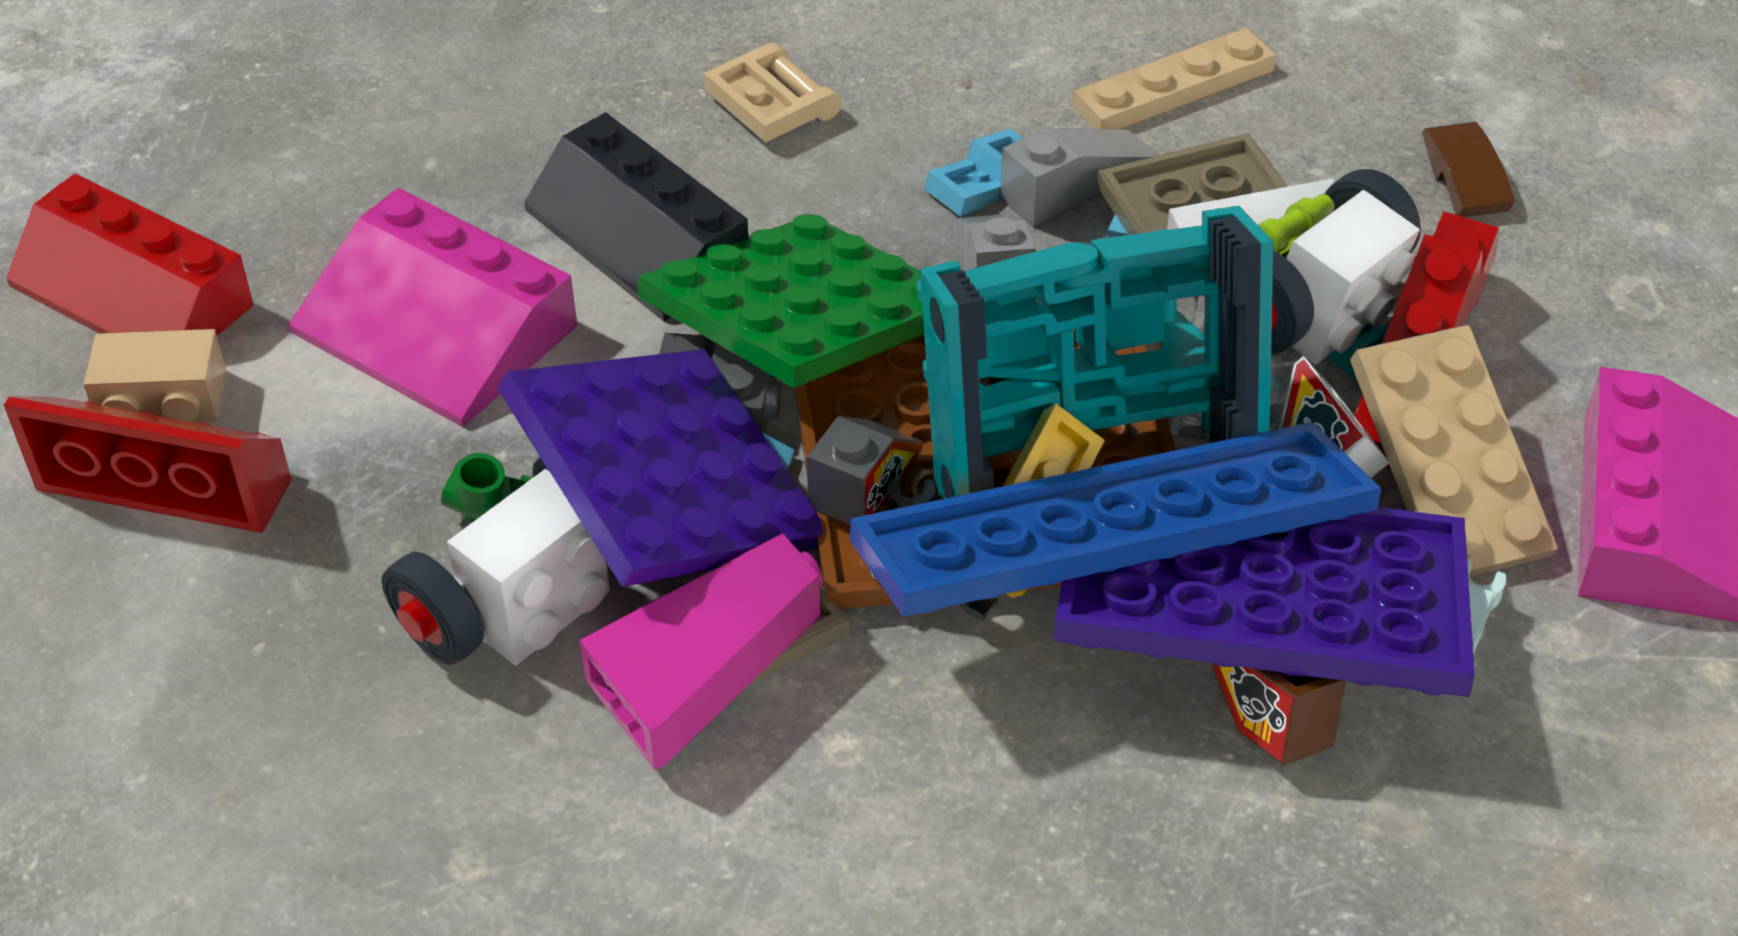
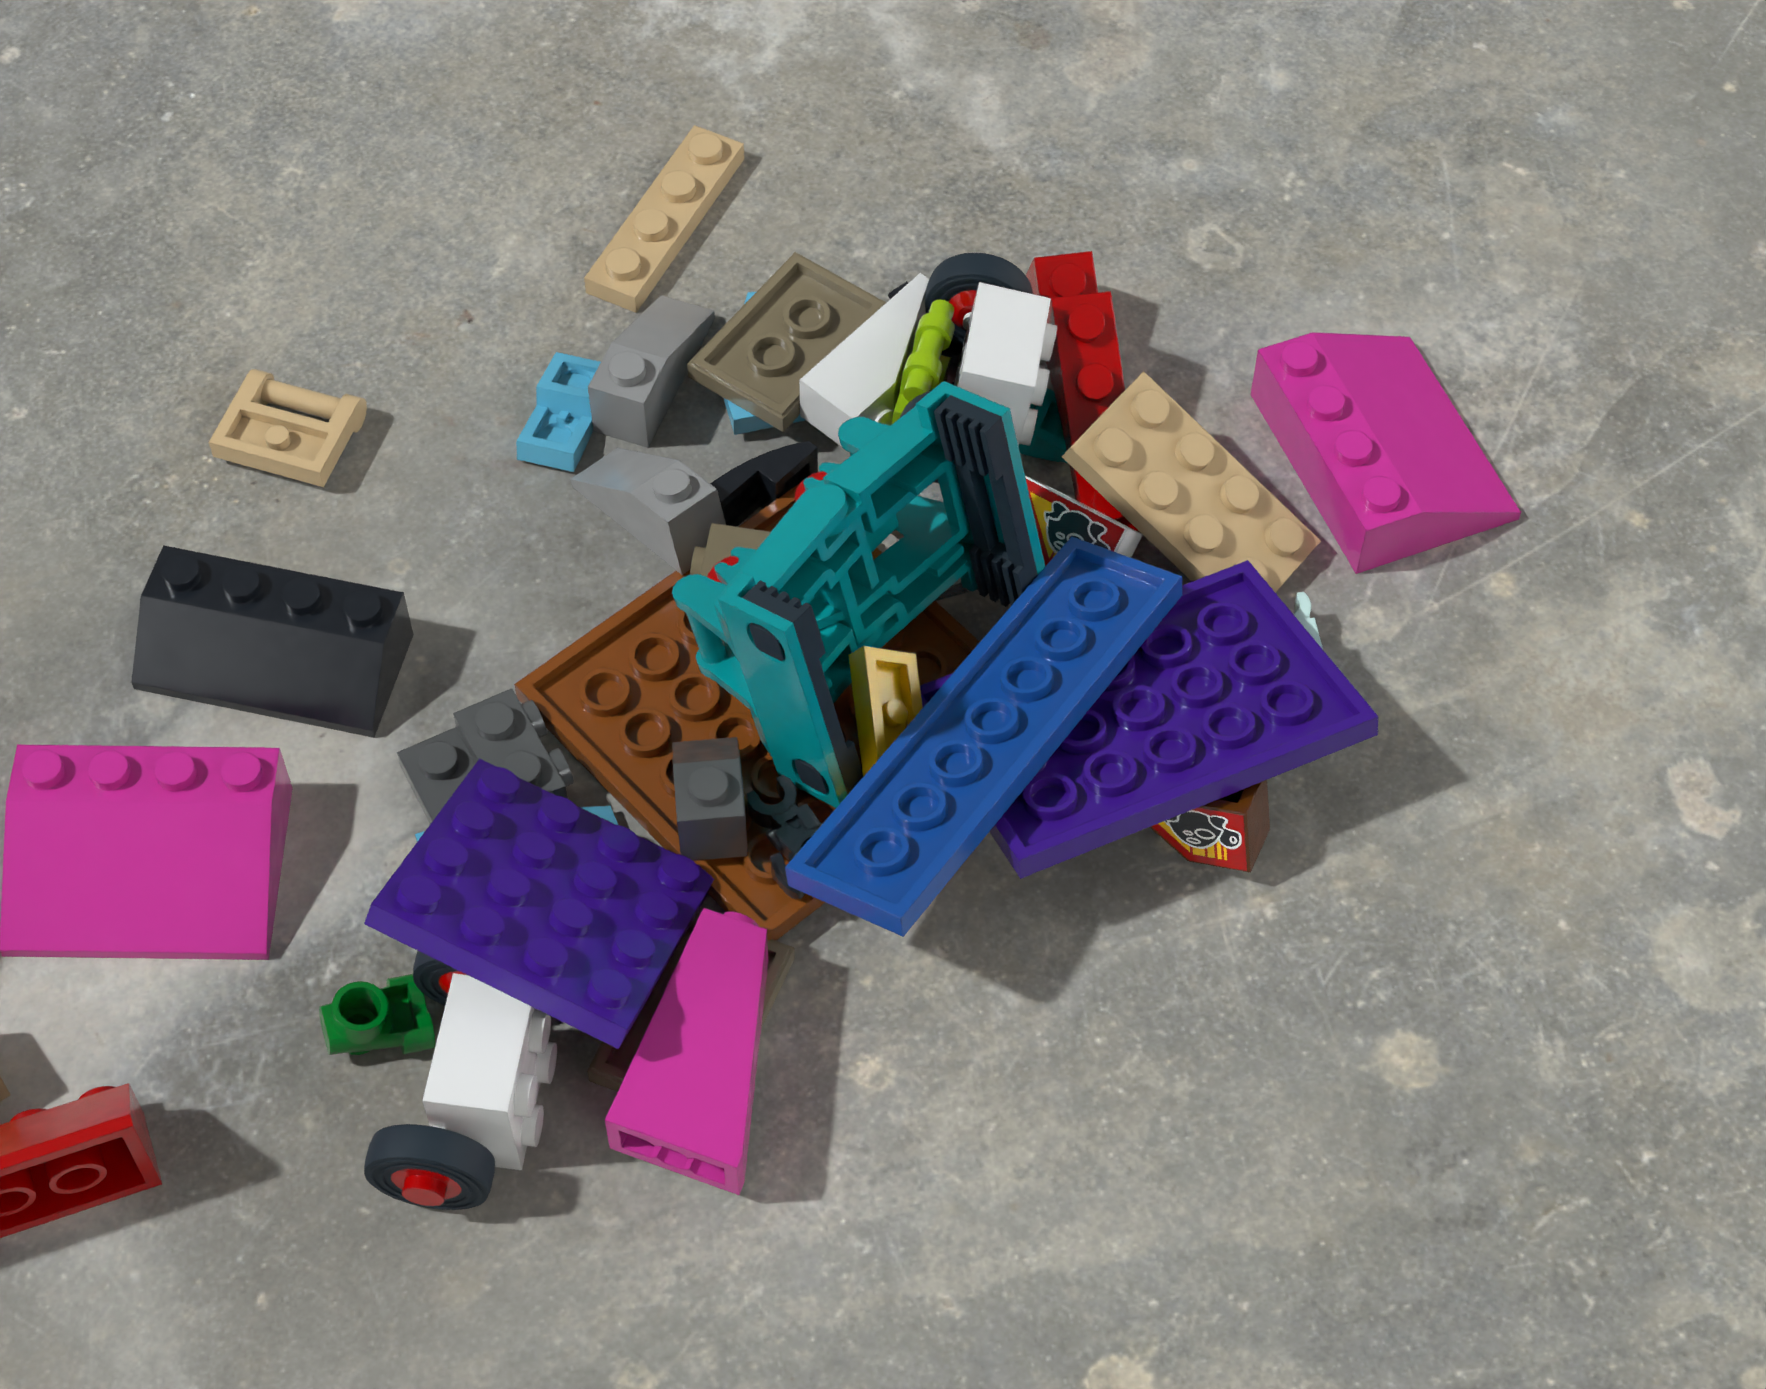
camera: 35 degrees left, 10 degrees up
(793, 298) = (516, 650): green plate -> none
(1470, 169) = (1000, 184): reddish brown slope -> none

